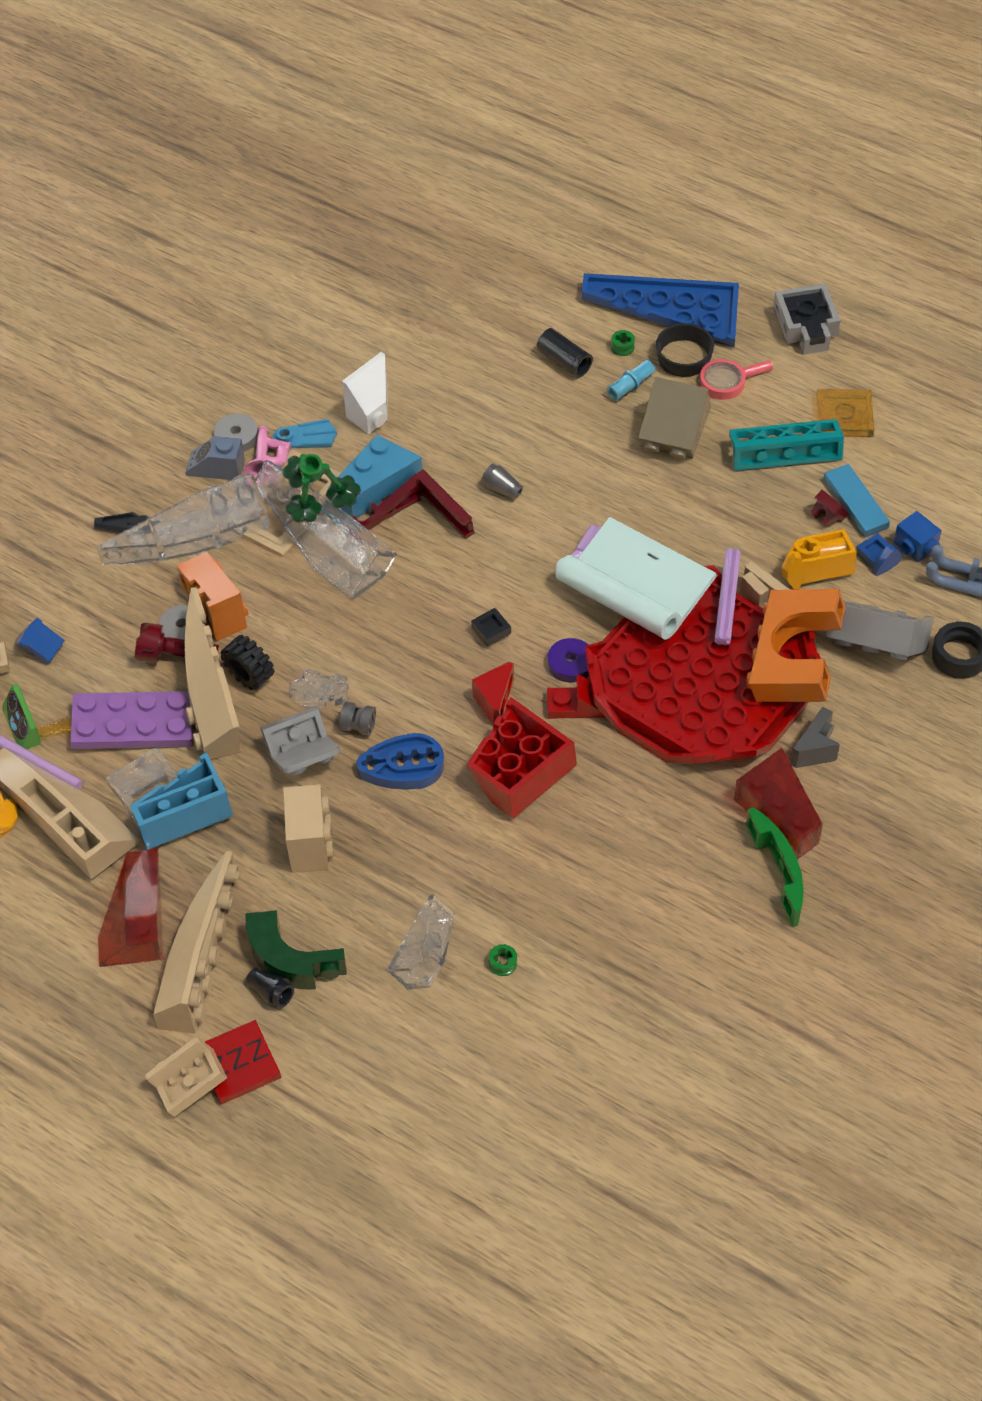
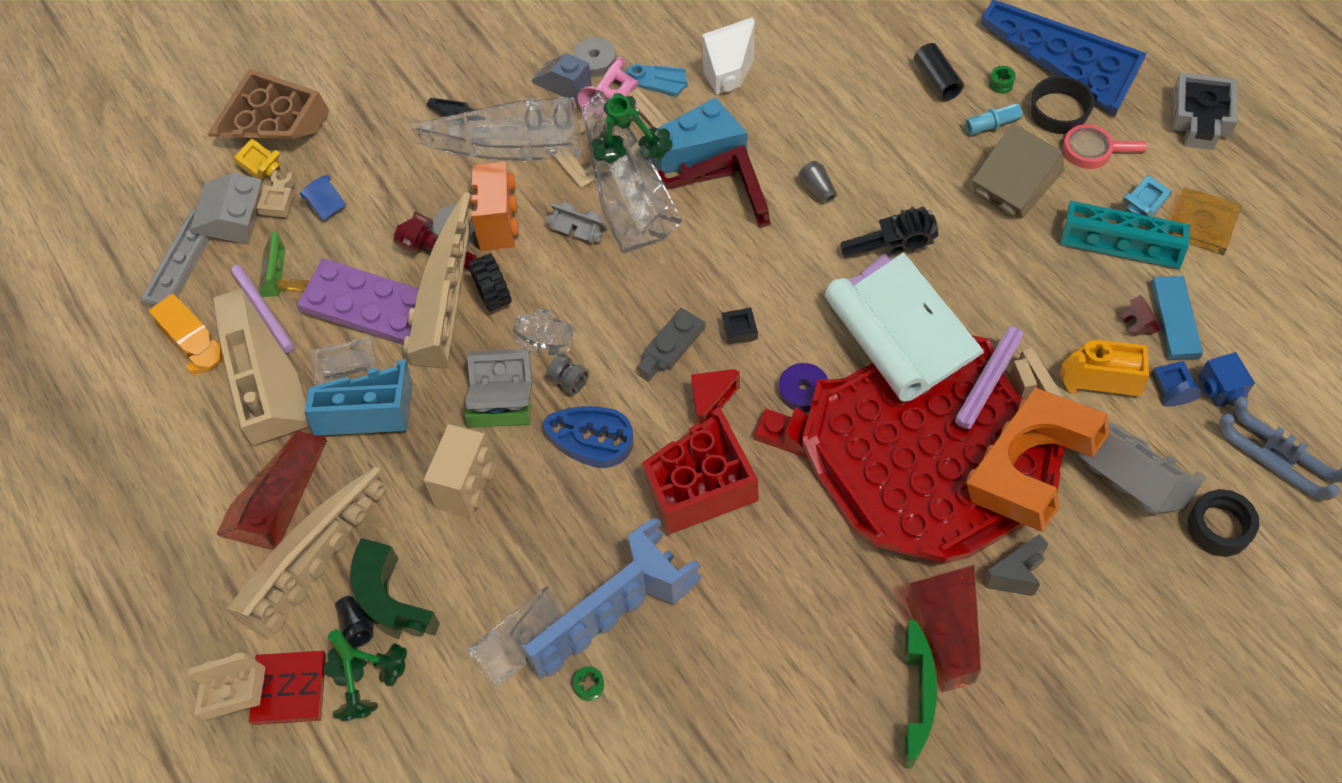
camera: 25 degrees right, 5 degrees up
(284, 1022) = (346, 666): none -> dark green plant
(308, 584) = (587, 224): none -> light grey hinge
(312, 775) = (498, 417): none -> bright green slope
(436, 662) = (670, 343): none -> dark grey hinge
(515, 852) = (624, 592): none -> medium blue hinge
(594, 504) = (898, 233): none -> black gear
(791, 407) = (1147, 197): none -> medium azure bracket

